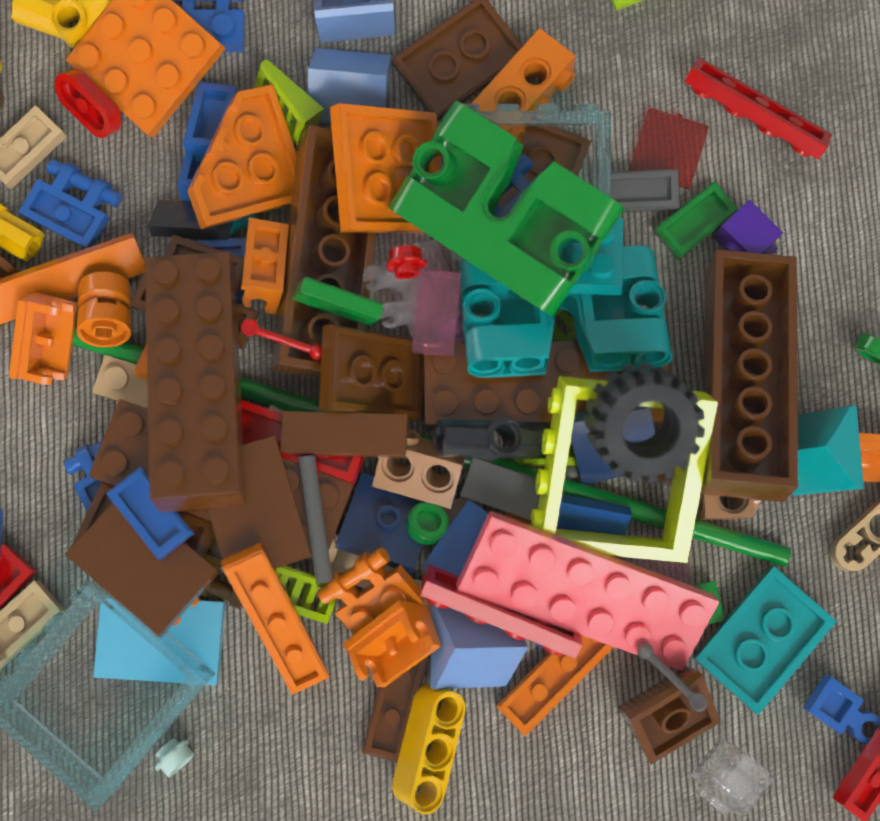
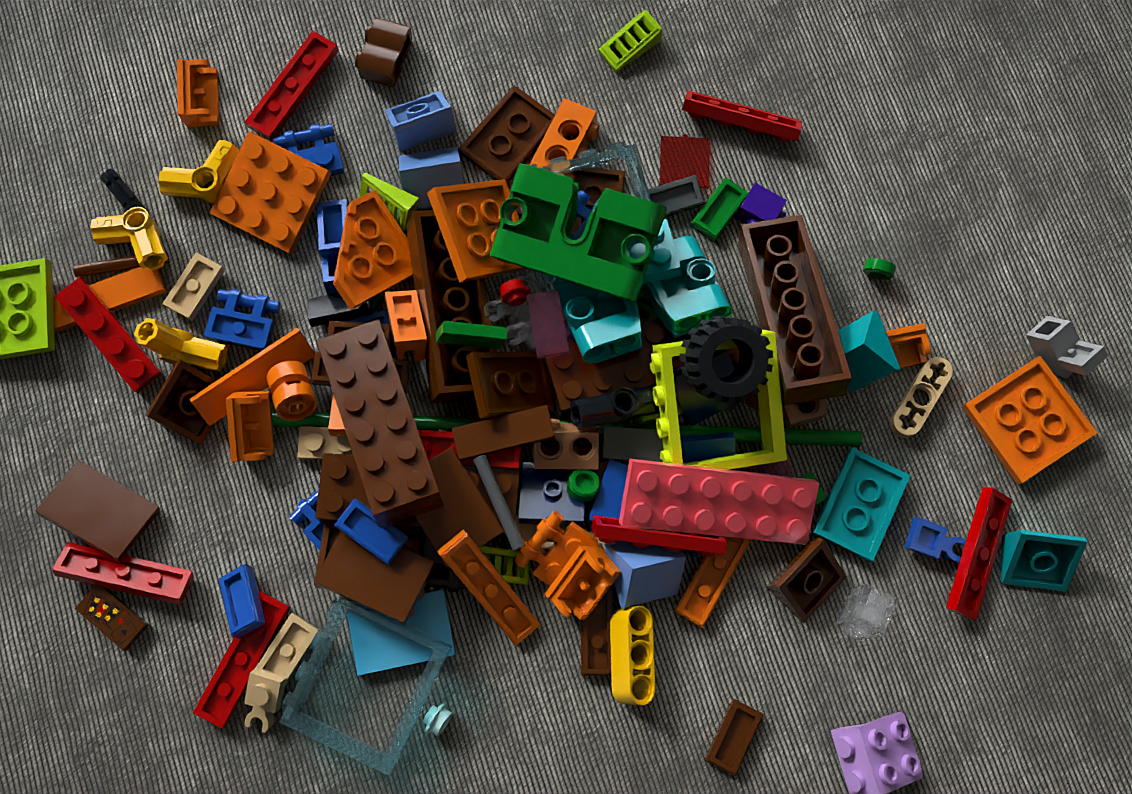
camera: 15 degrees left, 5 degrees down
(88, 103) = (235, 240): red plate -> none
(250, 328) = (411, 371): red hinge -> none
(696, 700) = (824, 558): dark grey hinge -> none

